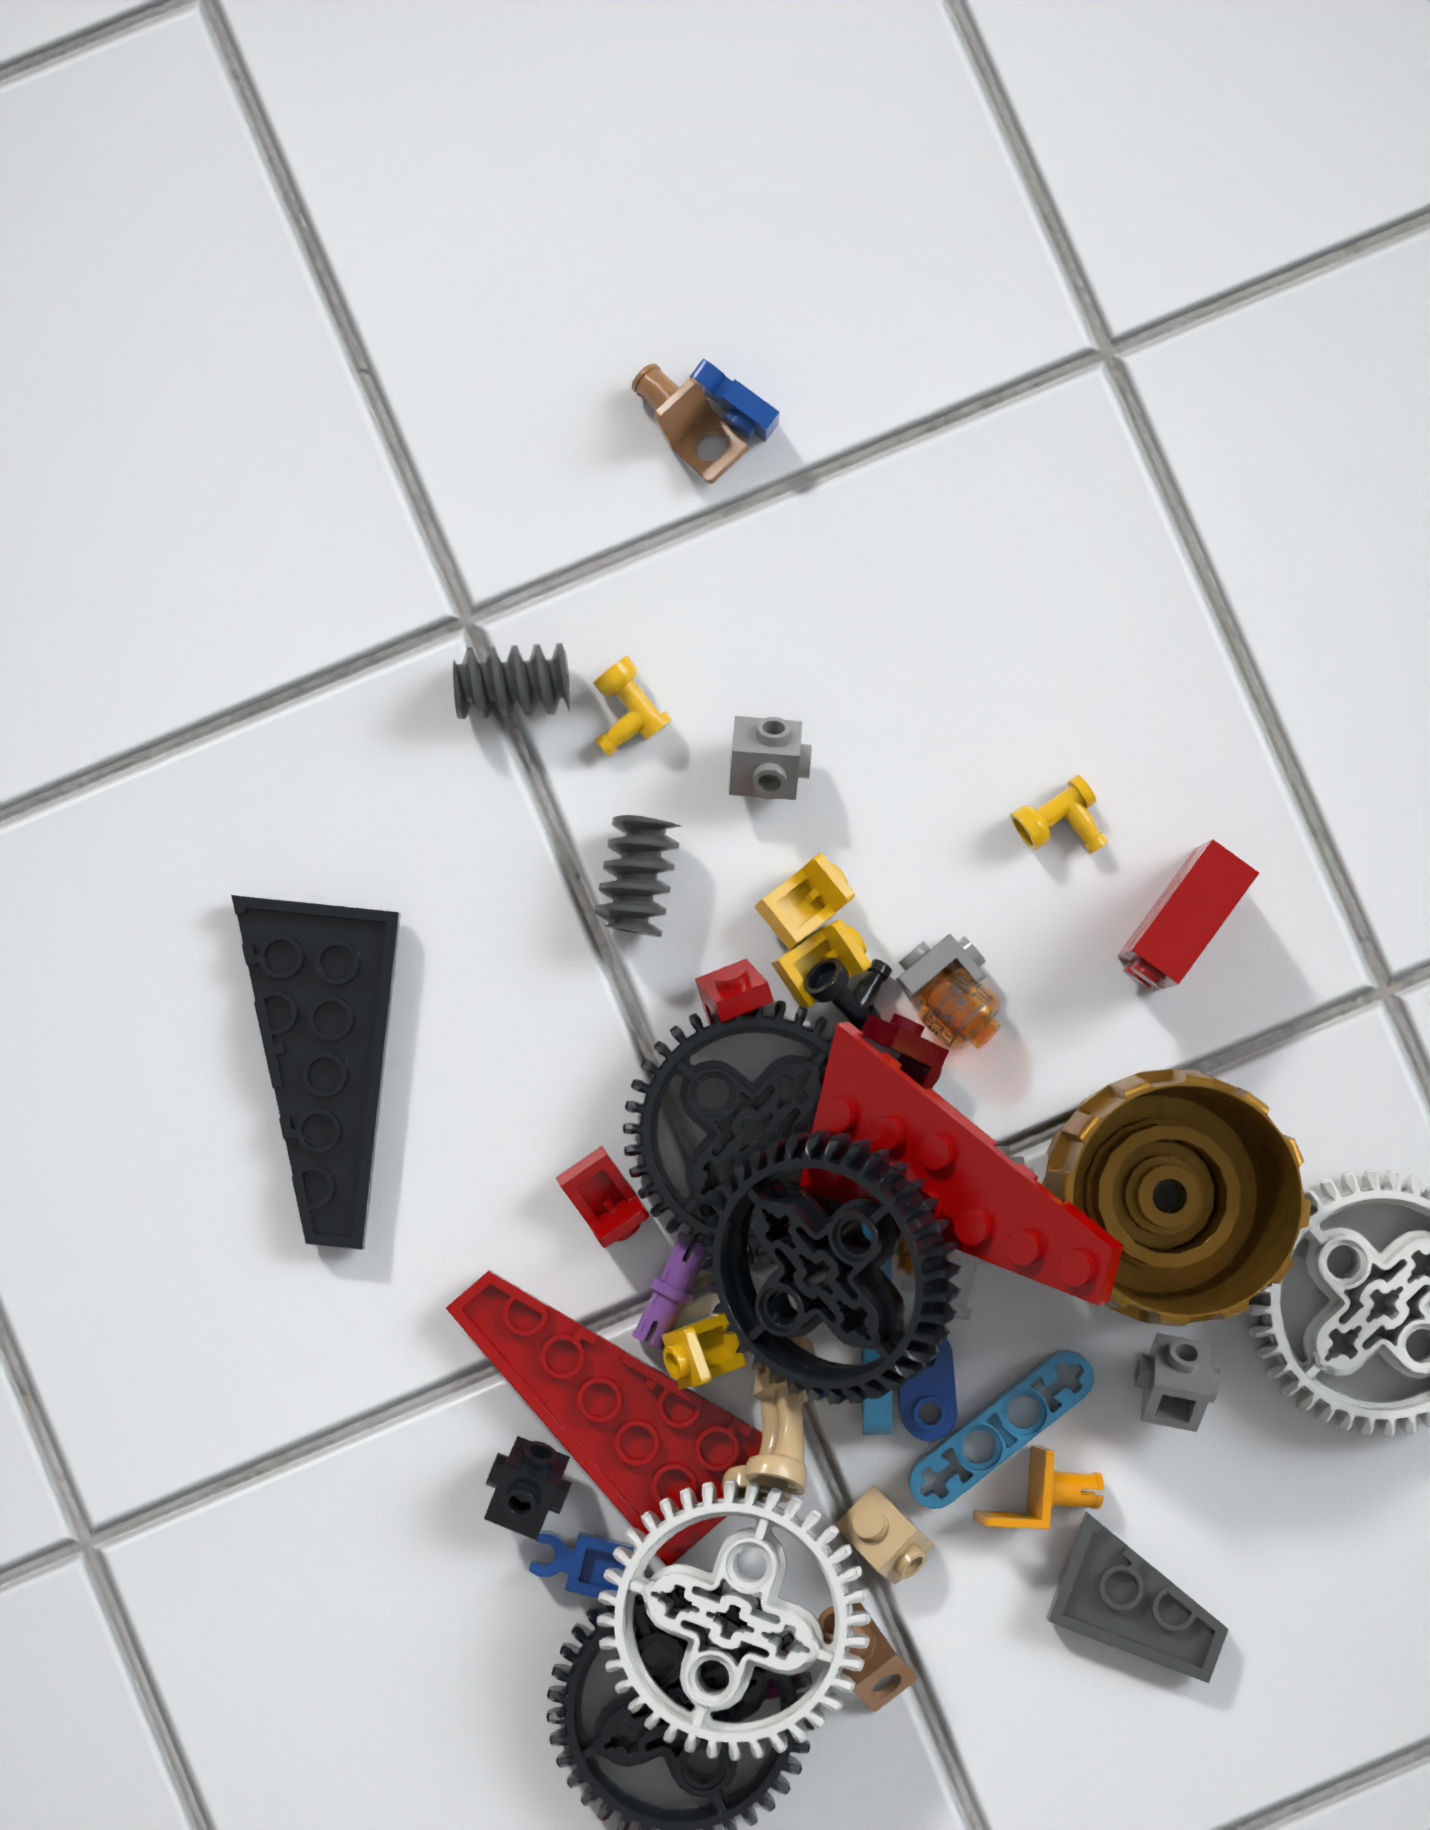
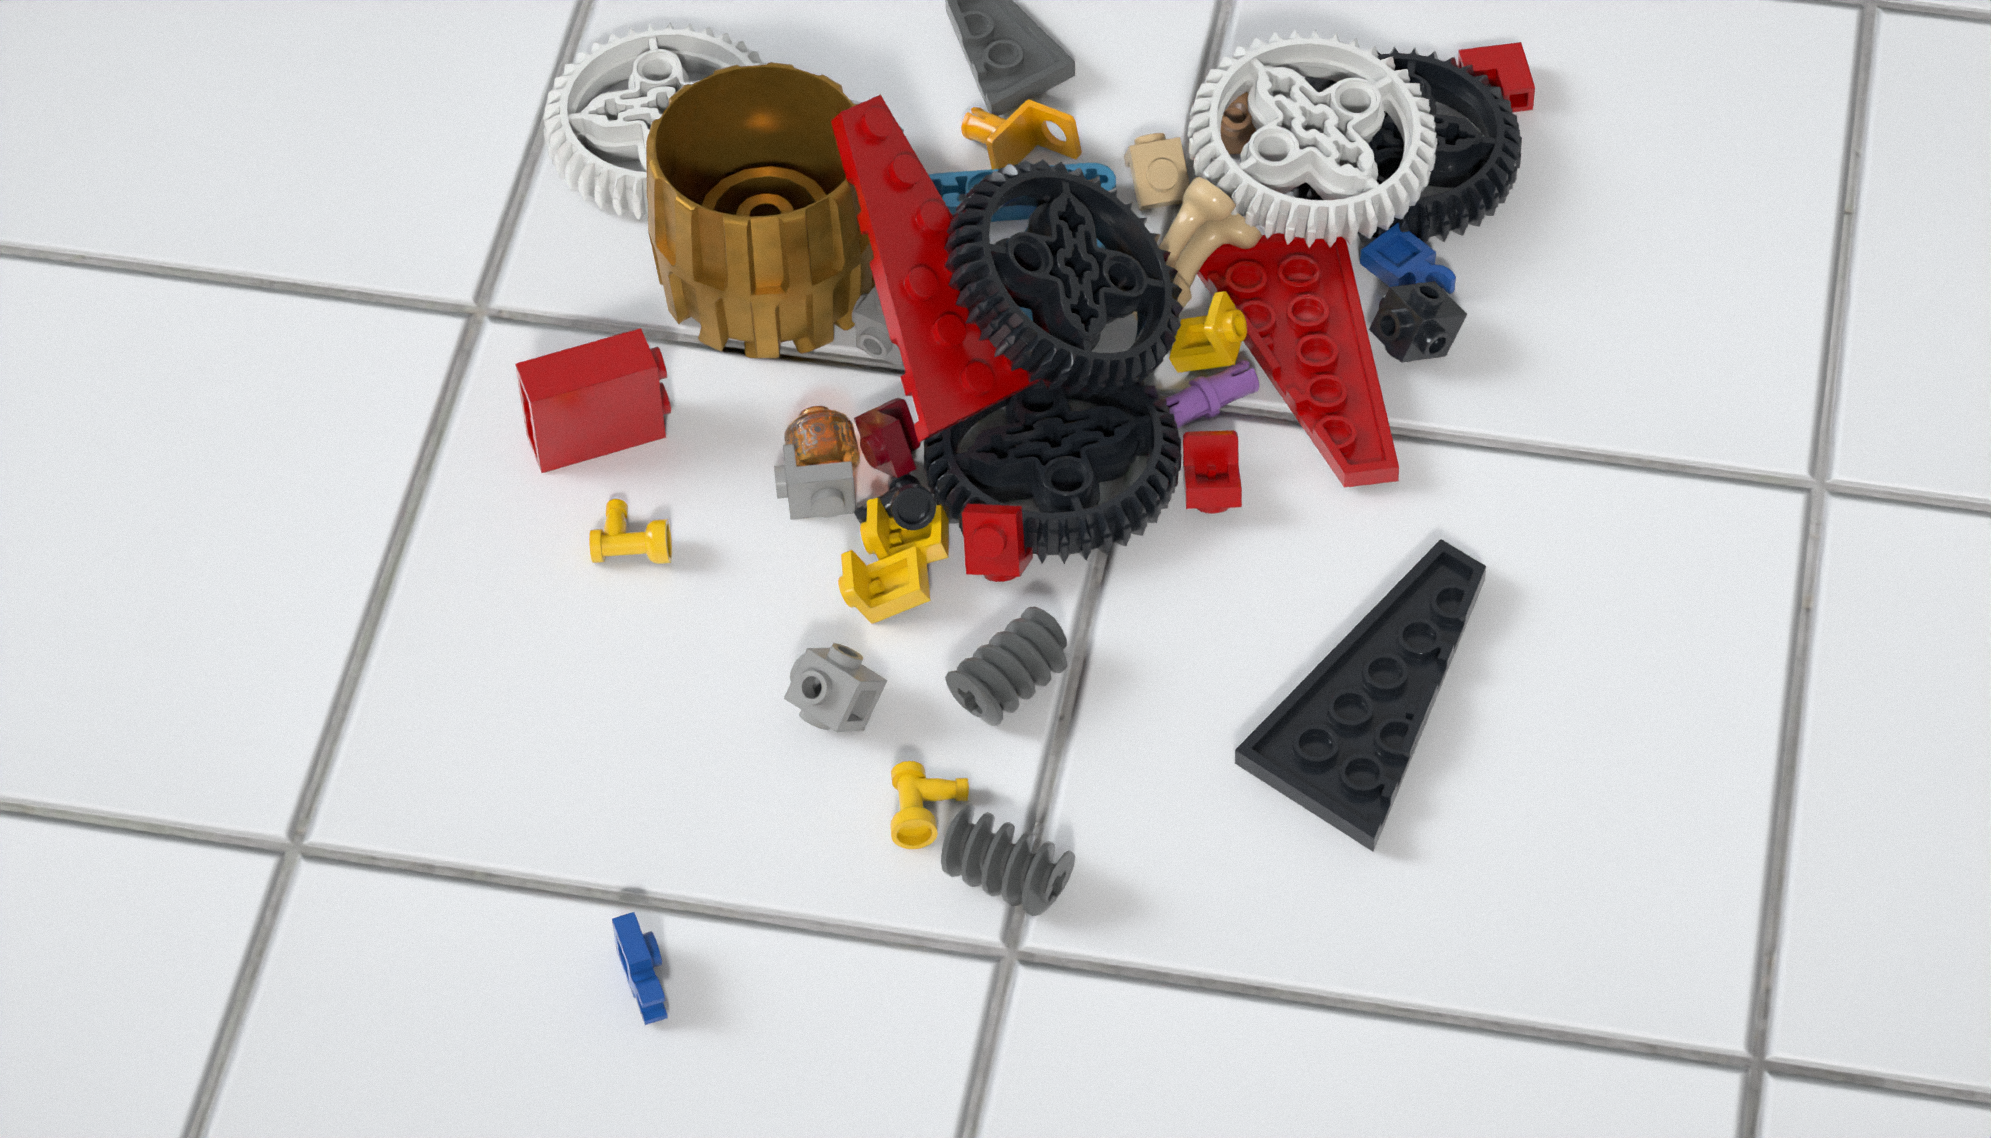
camera: 145 degrees left, 35 degrees down
(686, 419) = (694, 981): medium nougat bracket -> none

